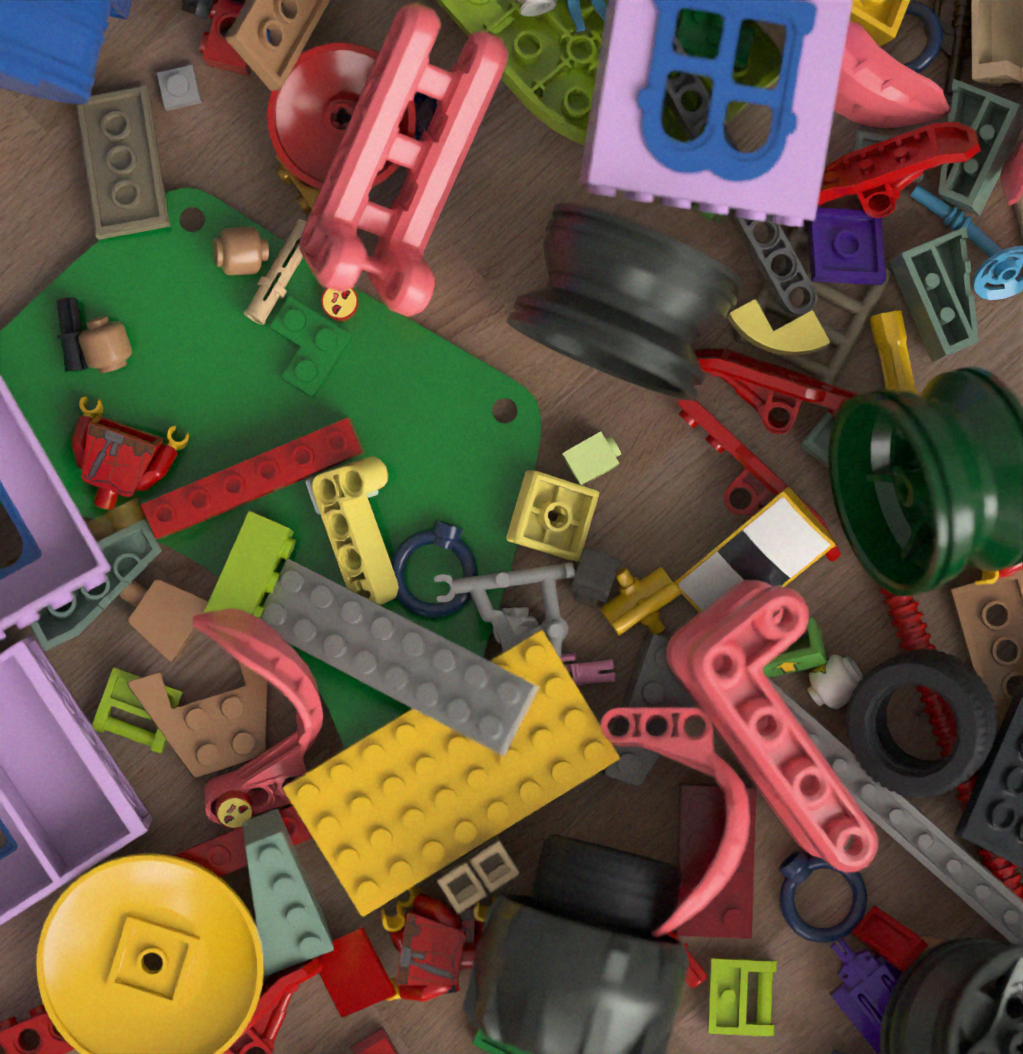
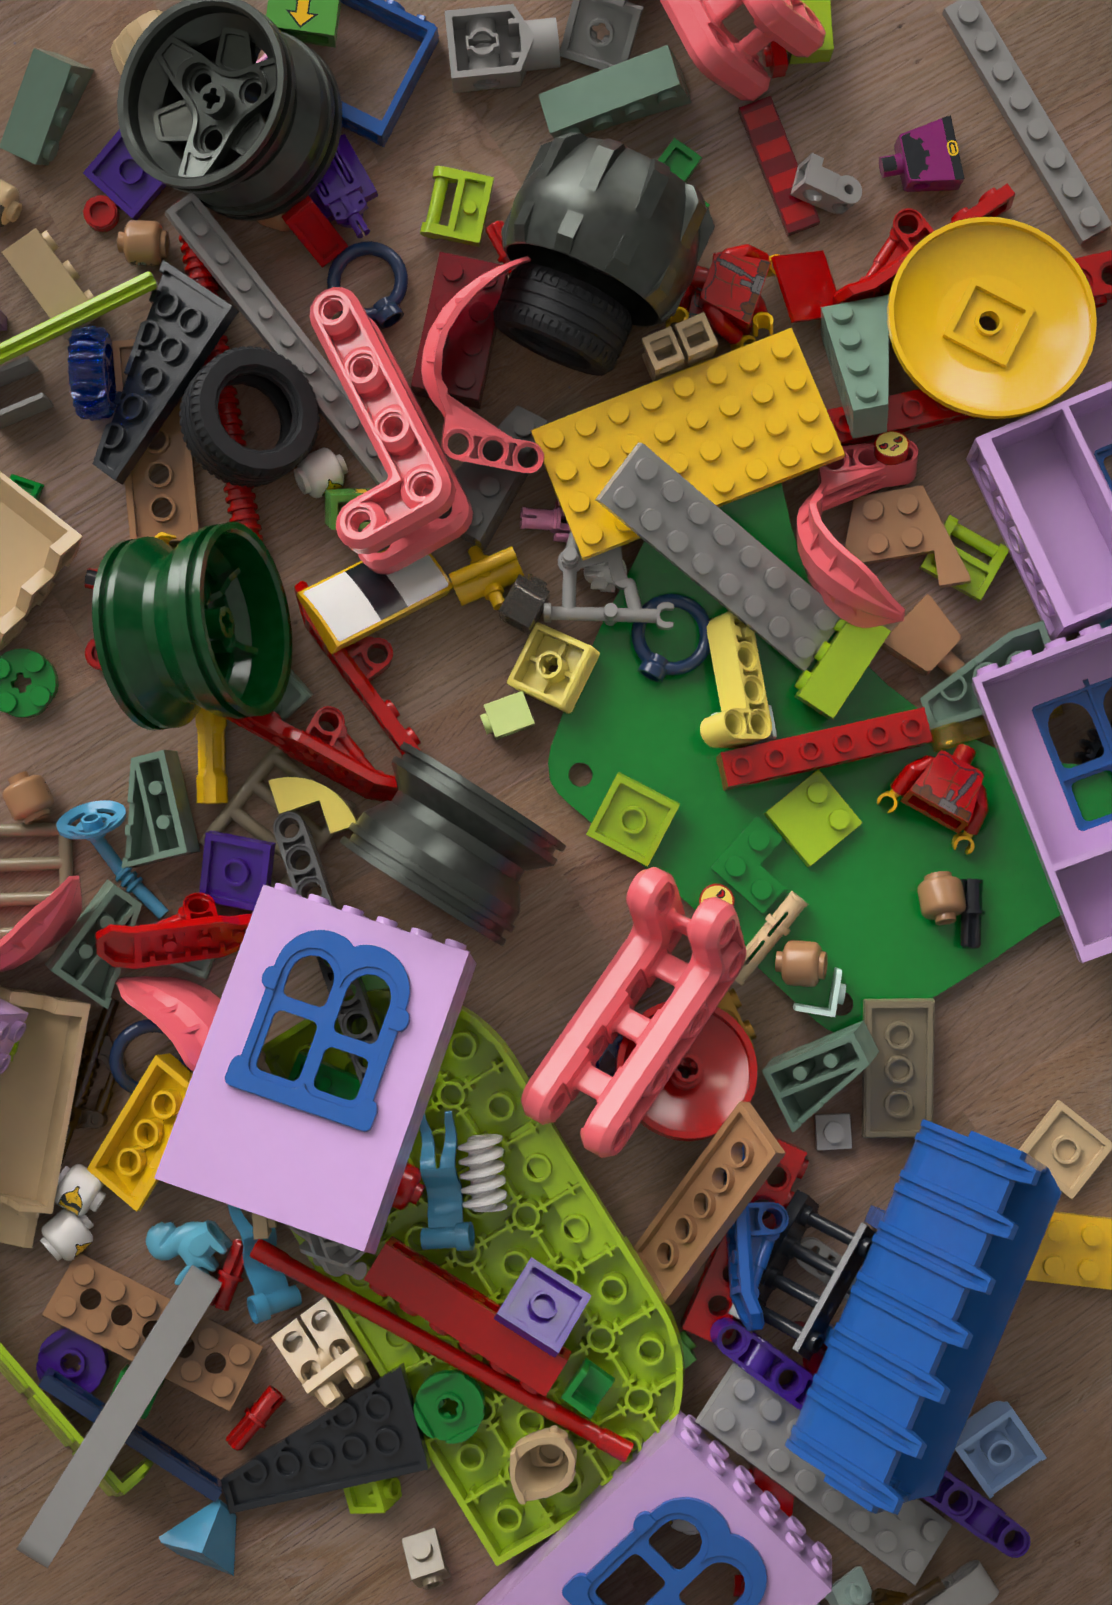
camera: 175 degrees left, 0 degrees up
(197, 223) = (837, 996): none -> light aqua bracket
(205, 142) = (818, 1070): none -> sand green wedge
(253, 405) = (813, 818): none -> lime plate
(441, 371) = (633, 819): none -> lime plate

